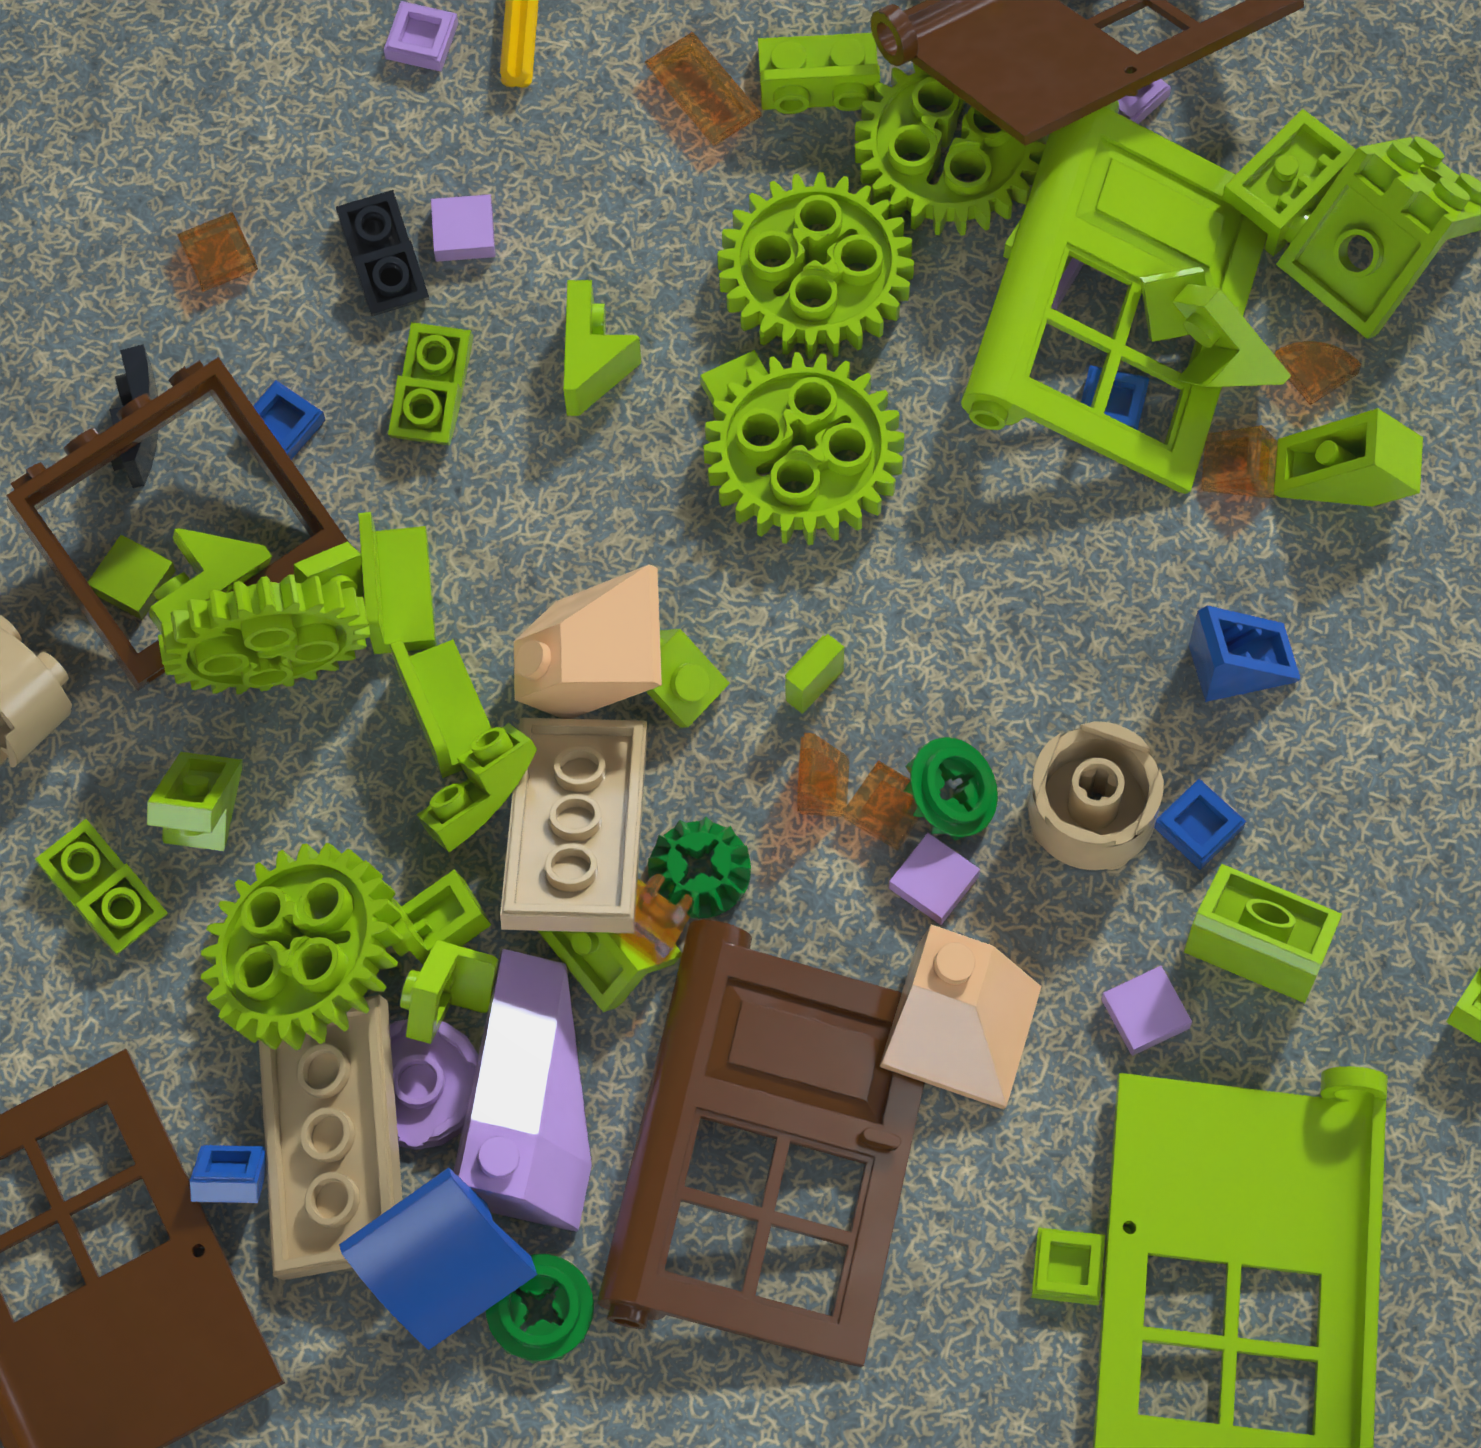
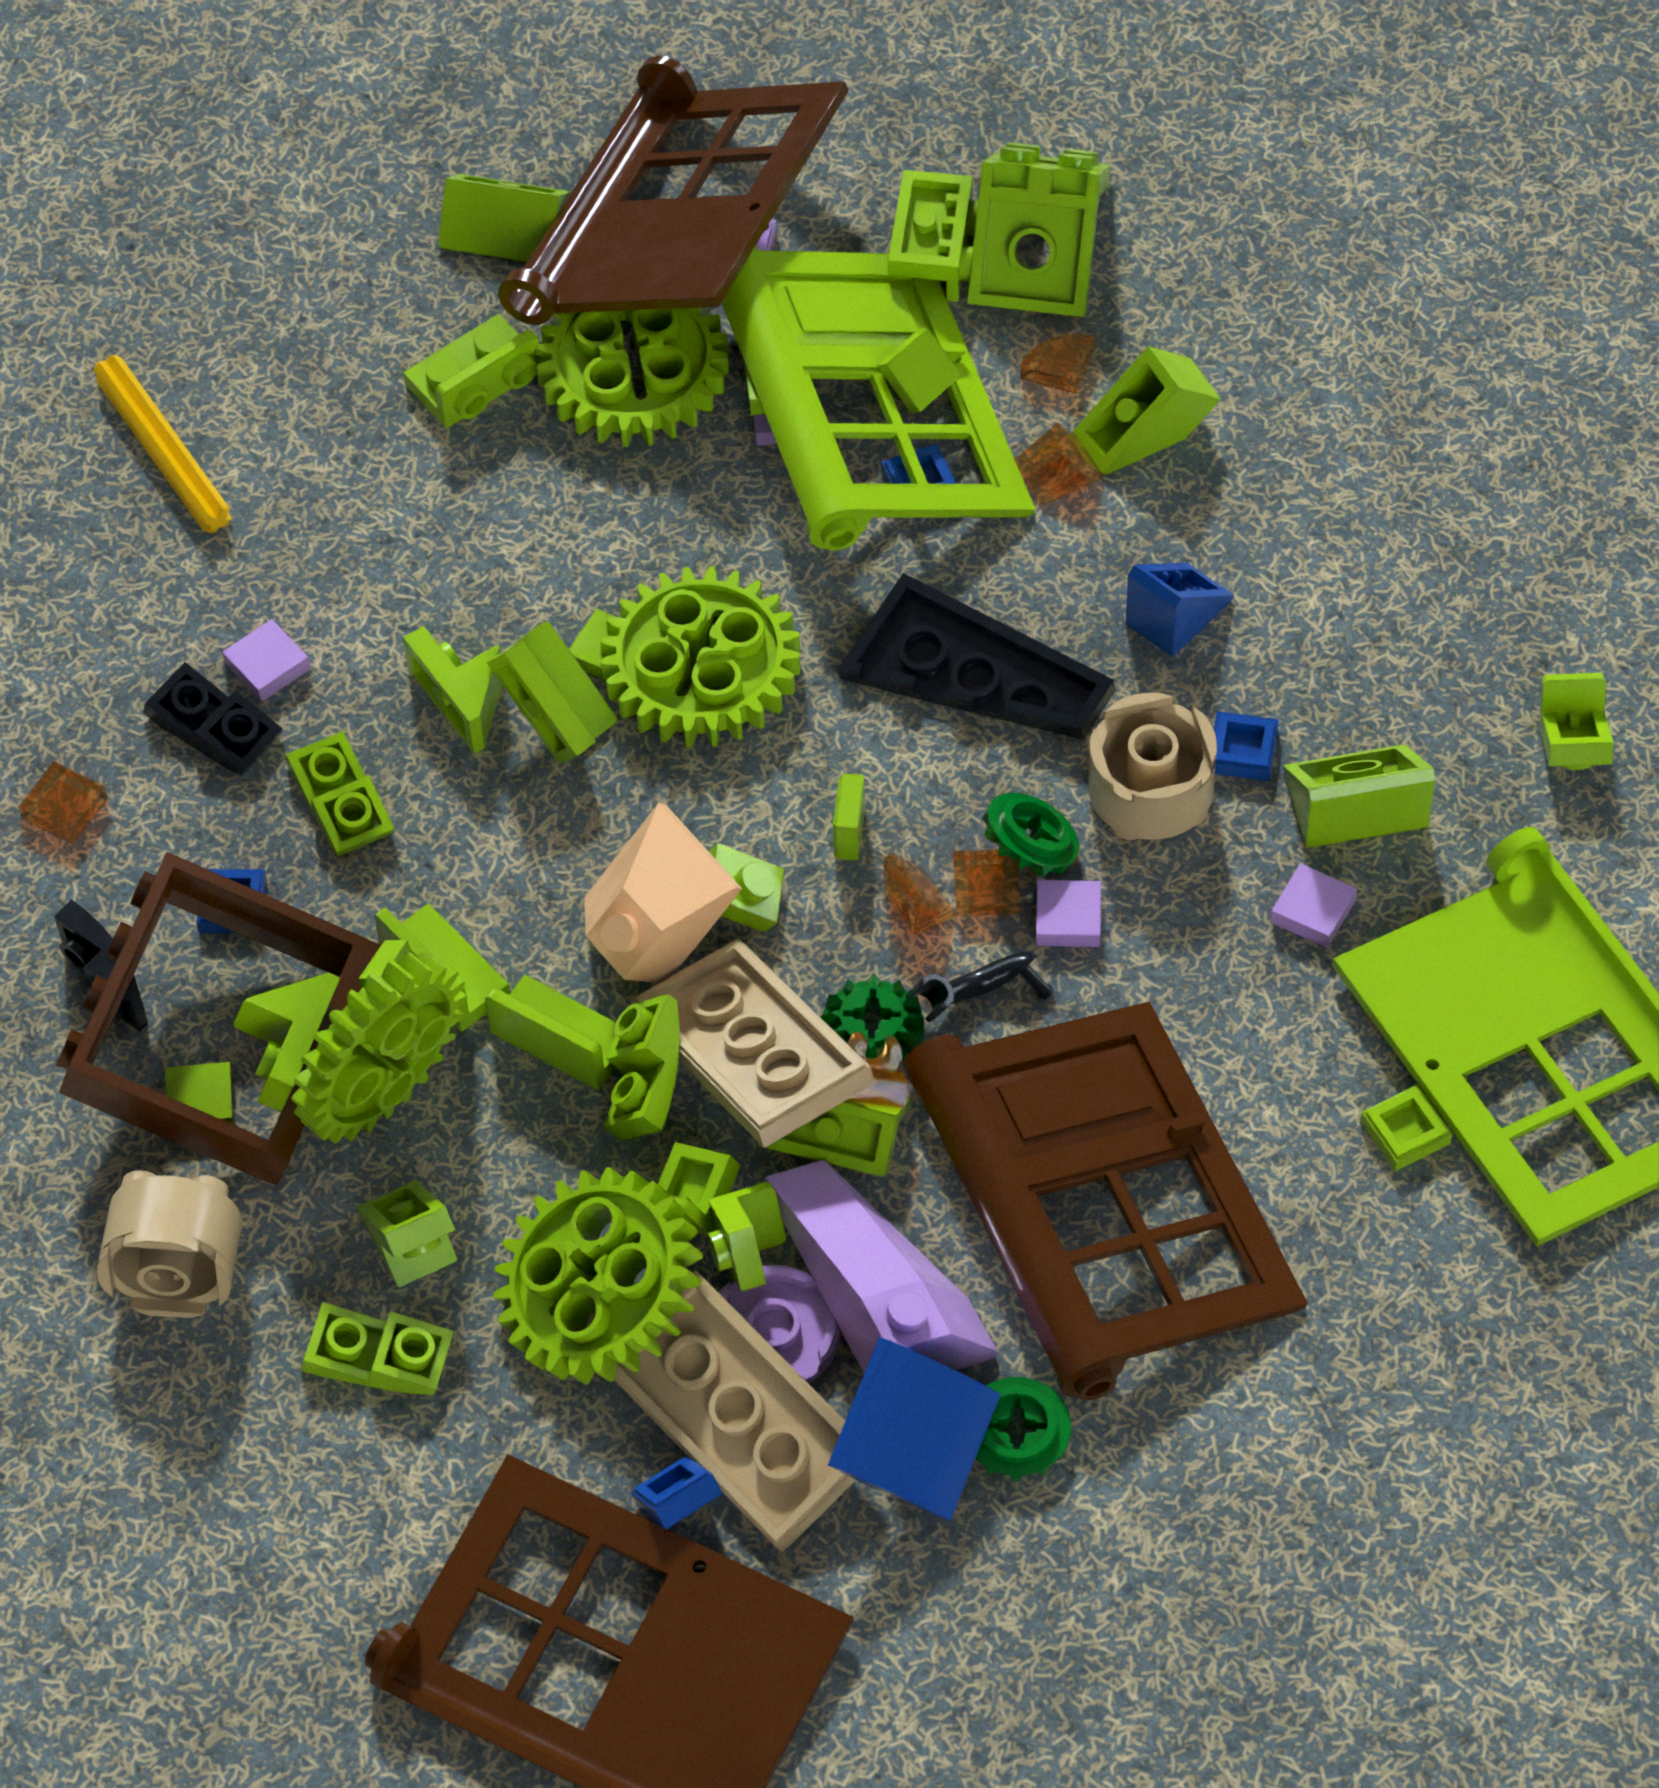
camera: 35 degrees left, 10 degrees down
(421, 36) = (104, 534): lavender tile -> none
(657, 405) = (553, 692): none -> lime panel
(703, 89) = (386, 438): clear orange tile -> none
(810, 891) = (944, 993): none -> black piece
(851, 298) = (563, 495): lime gear -> none
(962, 1018) = (1174, 995): light nougat slope -> none
(1019, 591) = (967, 661): none -> black wing
(1232, 347) = (986, 369): lime slope -> none

